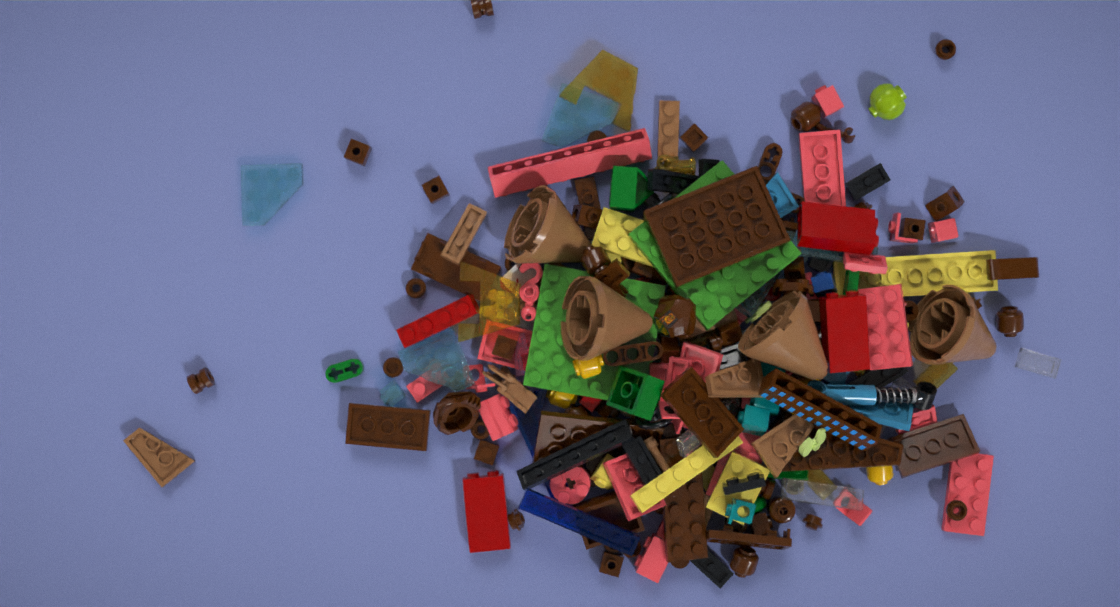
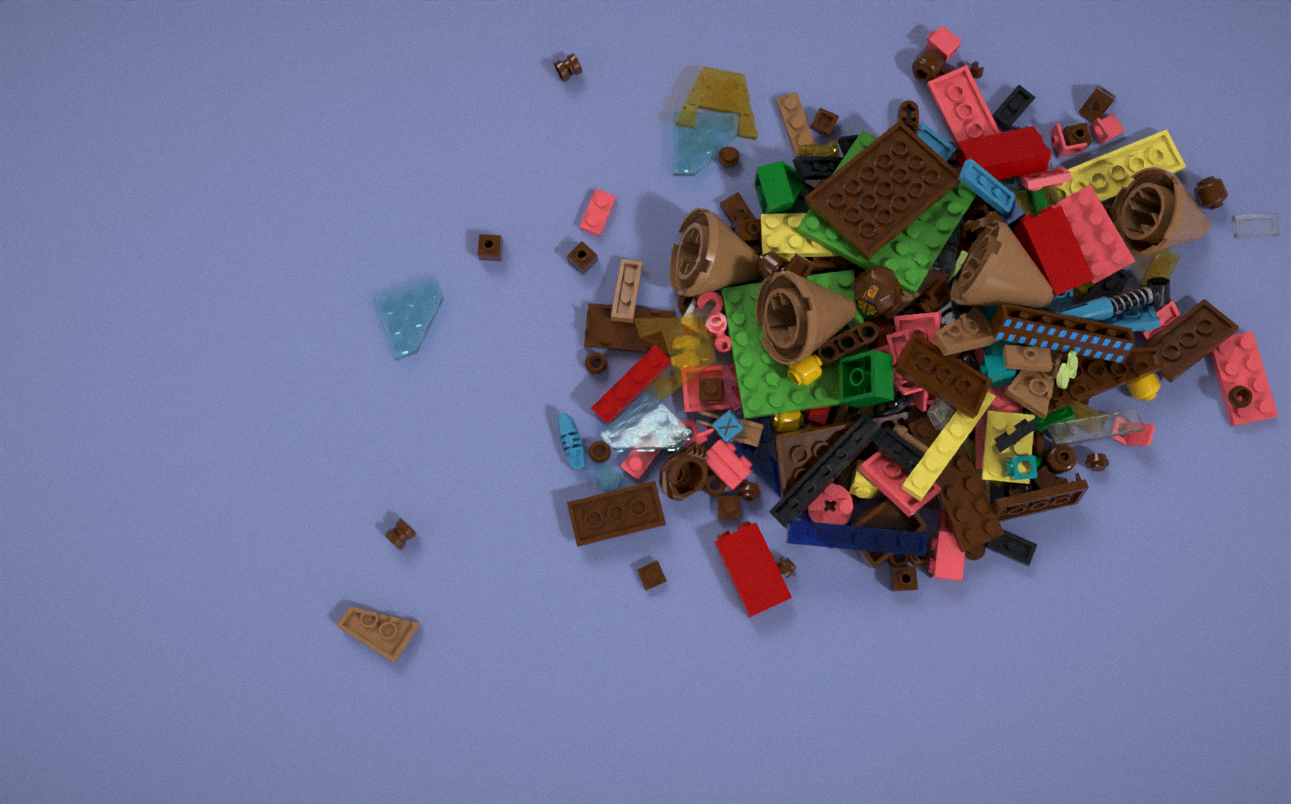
camera: 15 degrees left, 10 degrees down
(346, 375) = (546, 468): green beam -> none
(371, 351) = (571, 442): none -> dark azure hinge
(401, 487) = (651, 575): none -> reddish brown plate
(463, 152) = (597, 212): none -> coral plate
(507, 386) = (728, 425): none -> dark azure tile
(507, 445) = (749, 491): none -> reddish brown plate
(570, 162) = (709, 185): coral brick -> none
(744, 561) = (1043, 527): reddish brown head -> none
(781, 421) = (1027, 358): none -> medium nougat plate
(808, 255) = (986, 187): none -> dark azure plate
(887, 101) = (1001, 25): lime plant -> none
(1012, 268) = (1191, 140): reddish brown beam -> none

